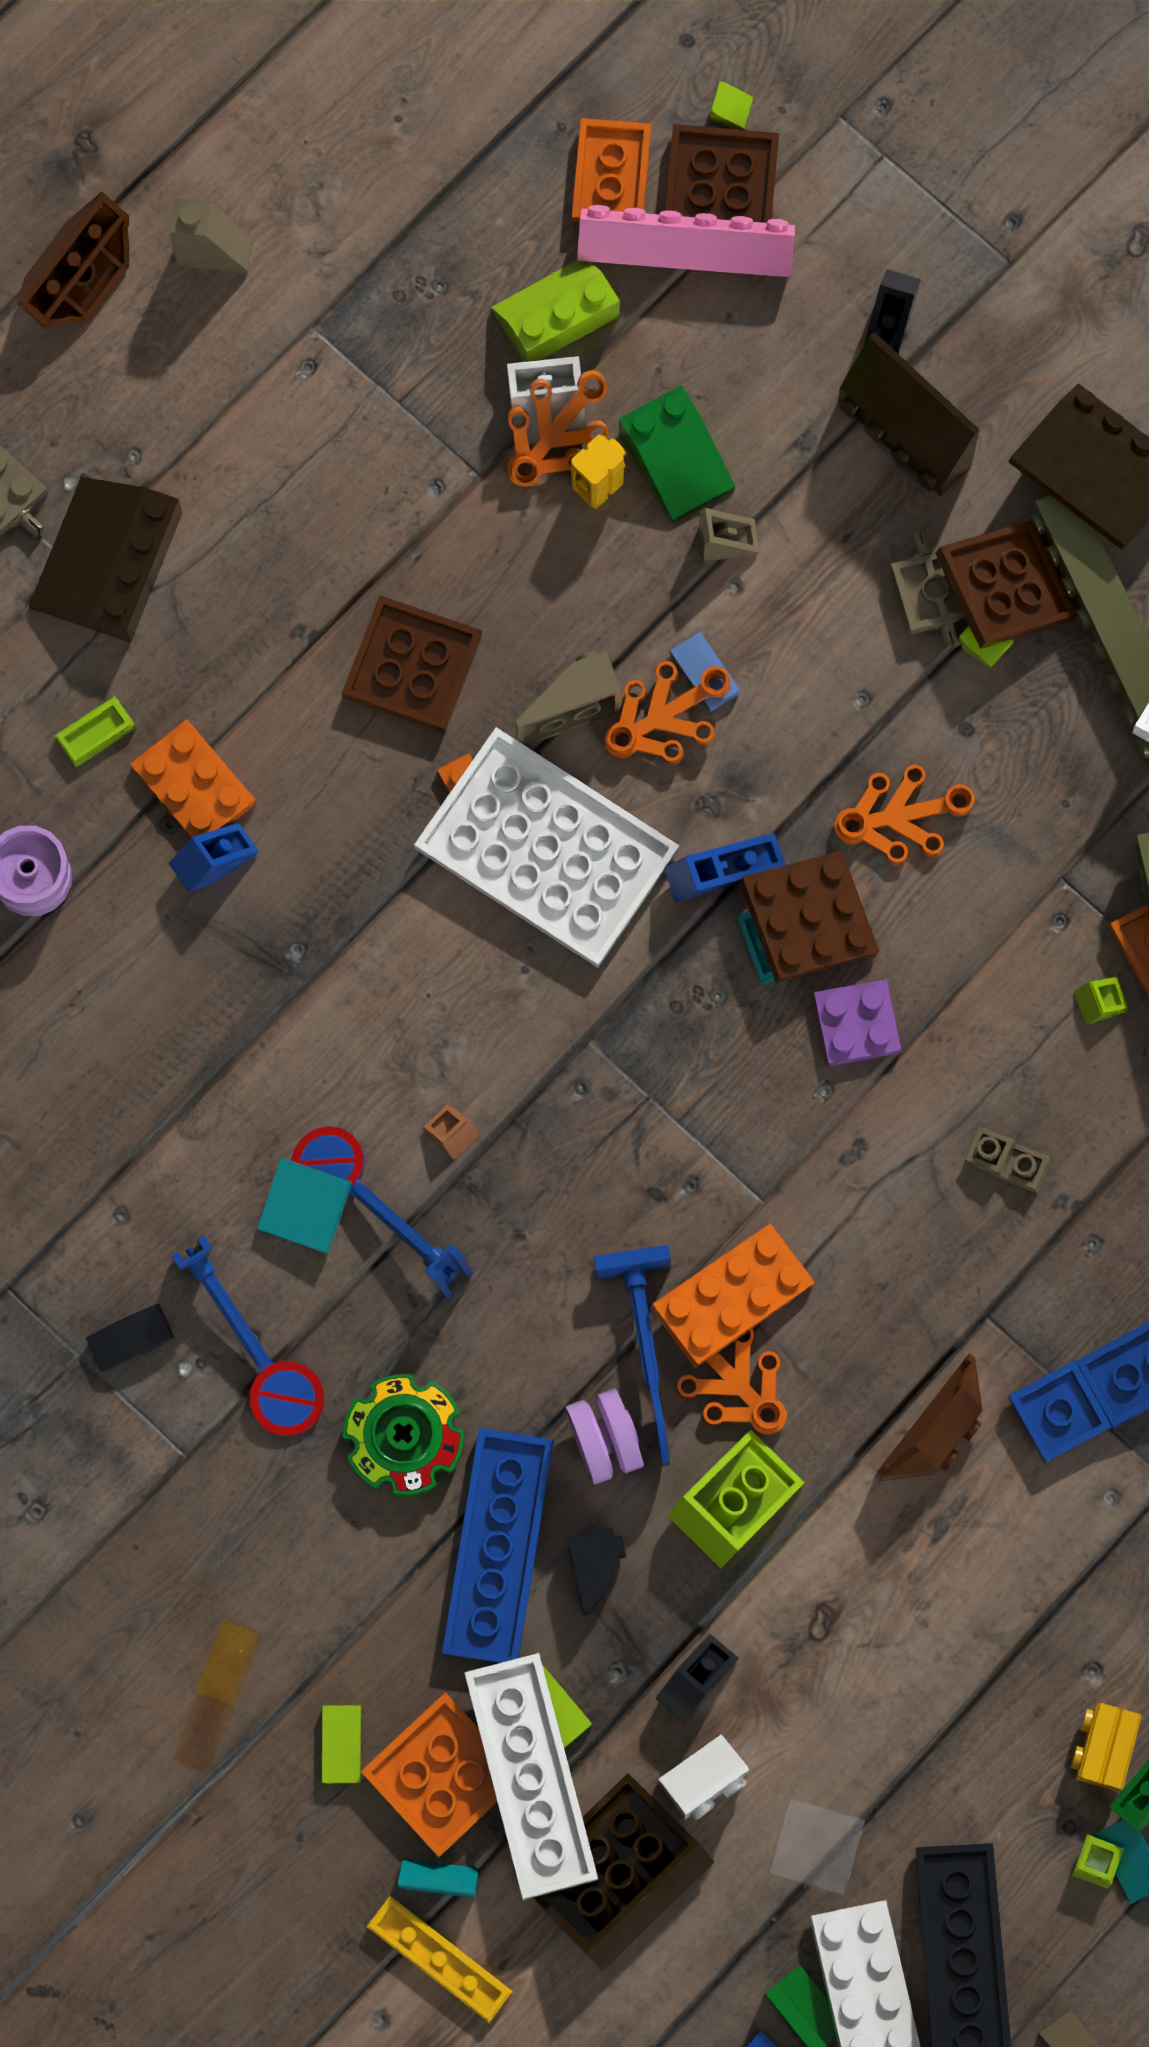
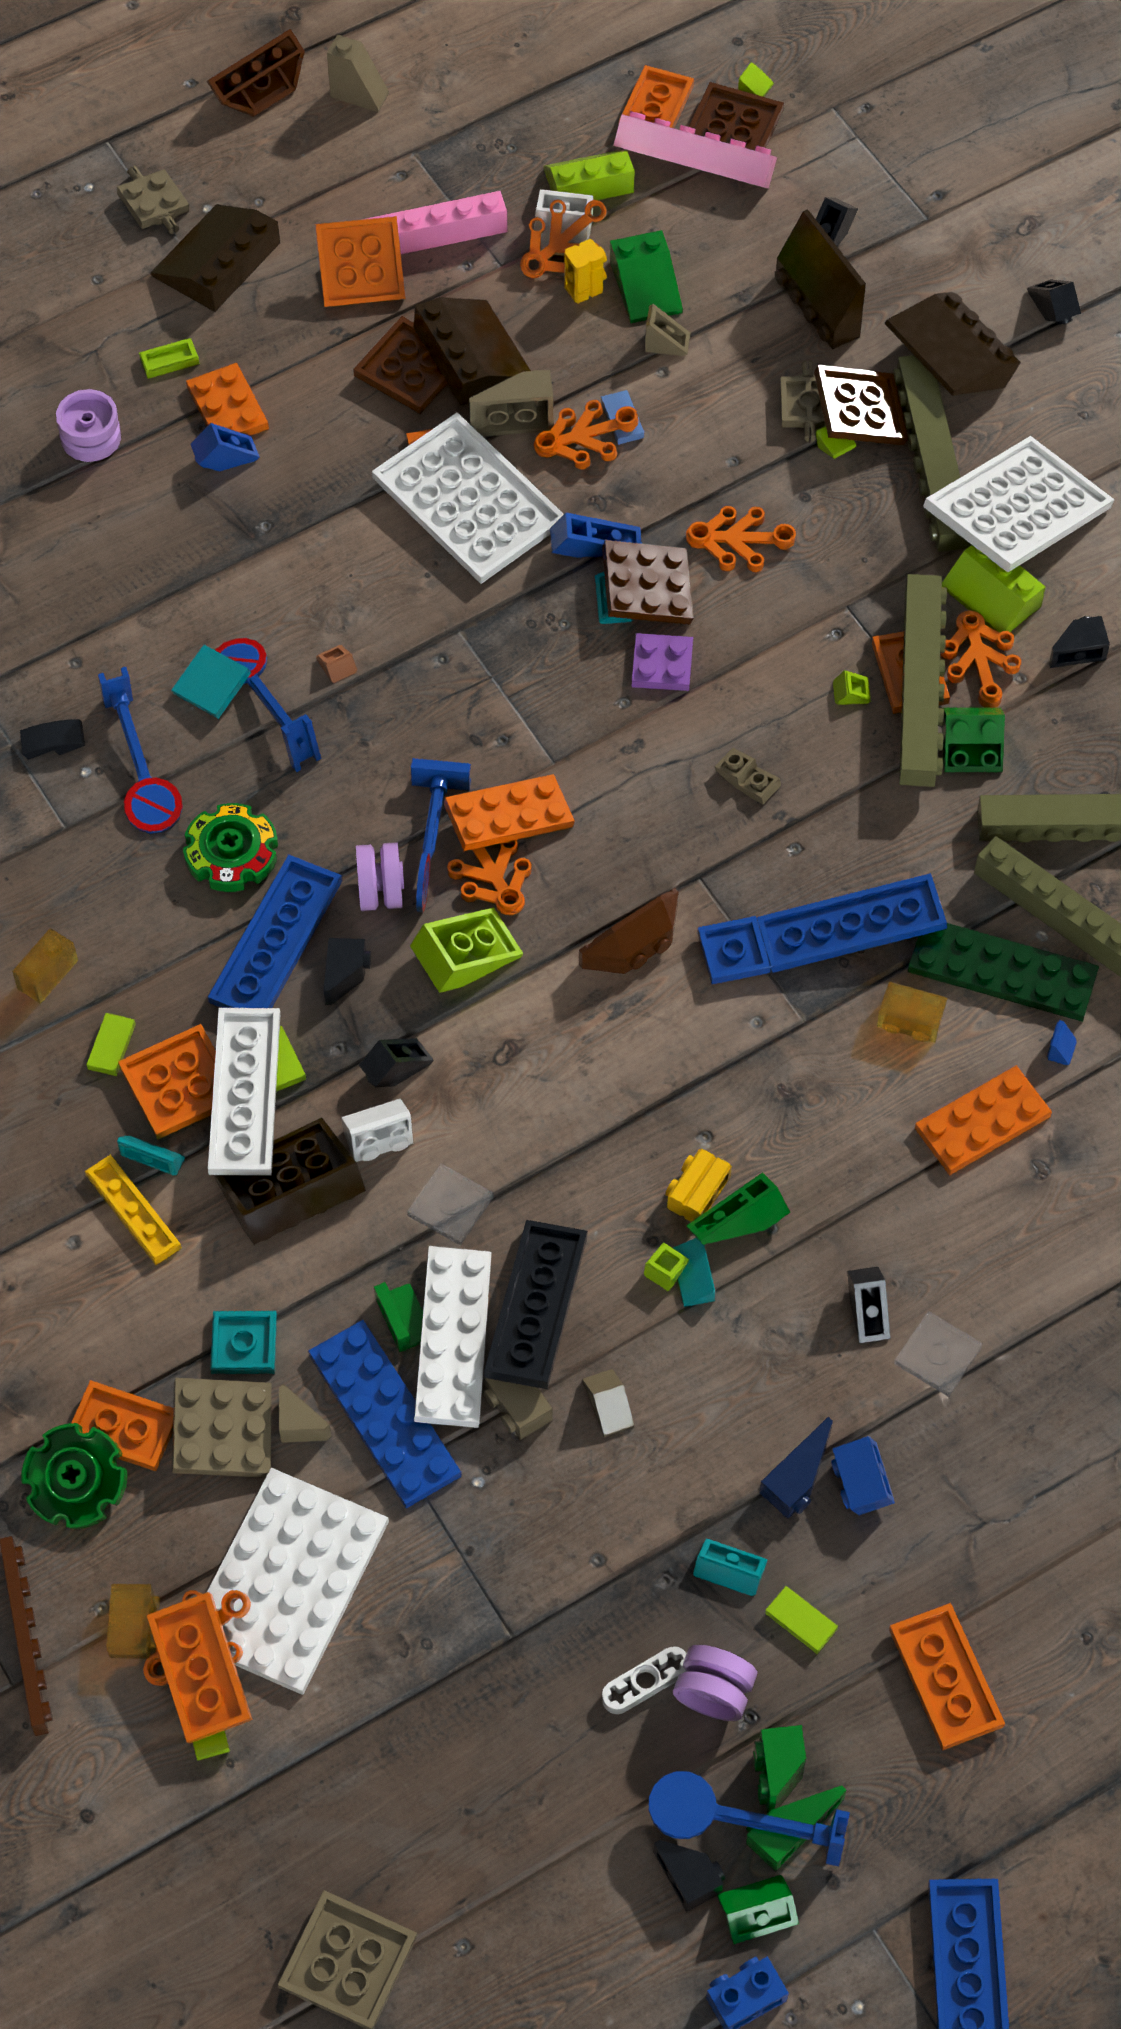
camera: 15 degrees right, 15 degrees down
(304, 532) = (360, 261): none -> orange plate
(369, 449) = (450, 222): none -> bright pink brick
(485, 623) = (467, 344): none -> dark brown slope

